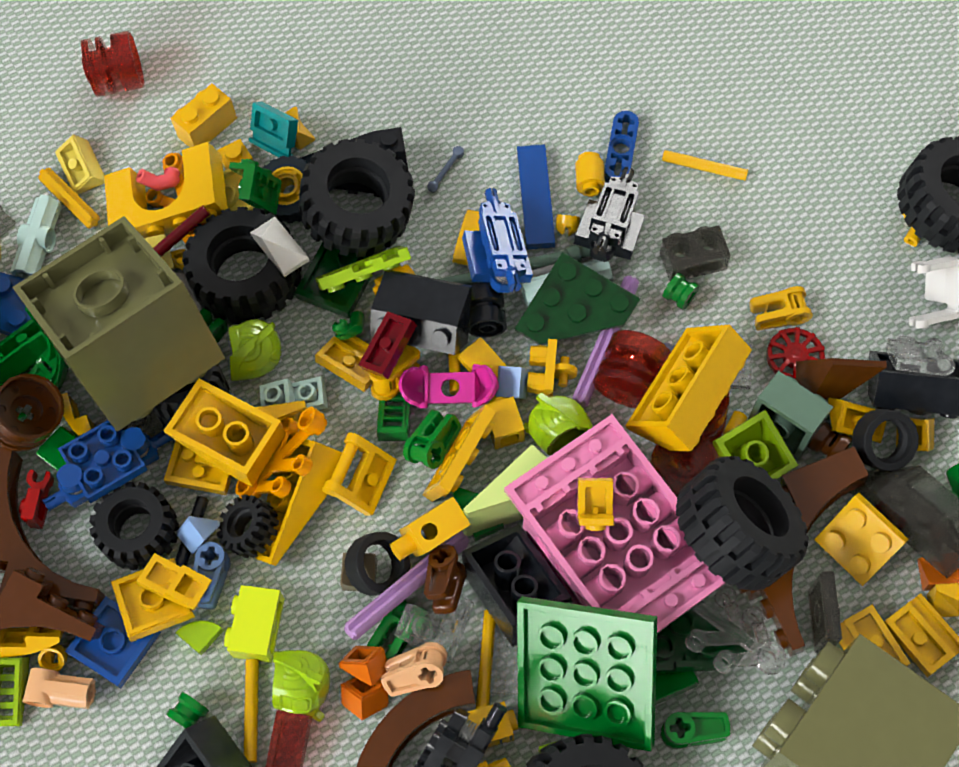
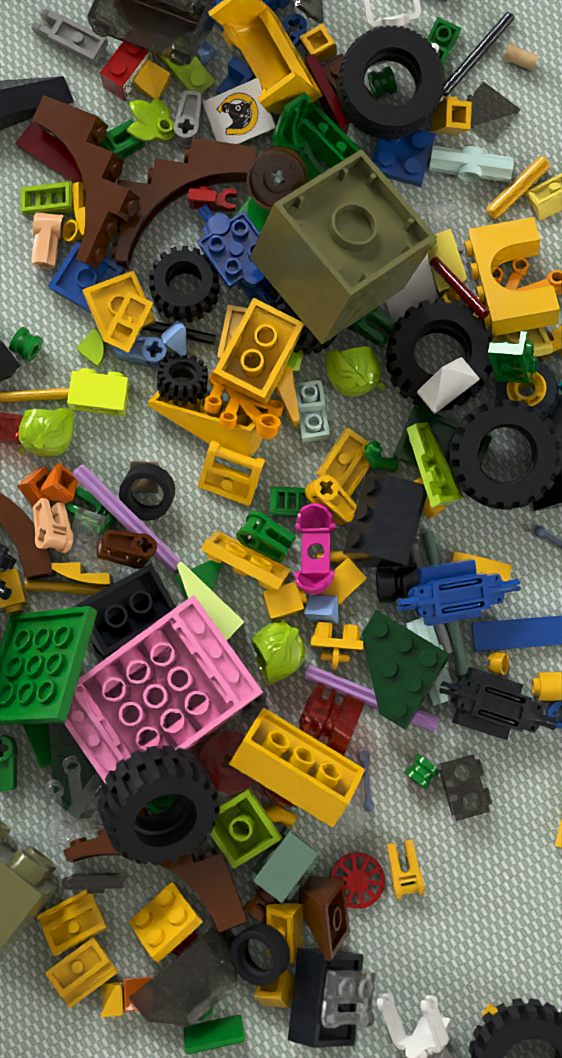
camera: 85 degrees right, 15 degrees up
(161, 182) = (530, 268): coral arm -> none
(387, 345) = (345, 490): dark red plate -> none
(437, 524) = (177, 543): yellow torso -> none
(470, 645) = (75, 572): none -> yellow slope
(595, 503) = (172, 673): yellow bracket -> none

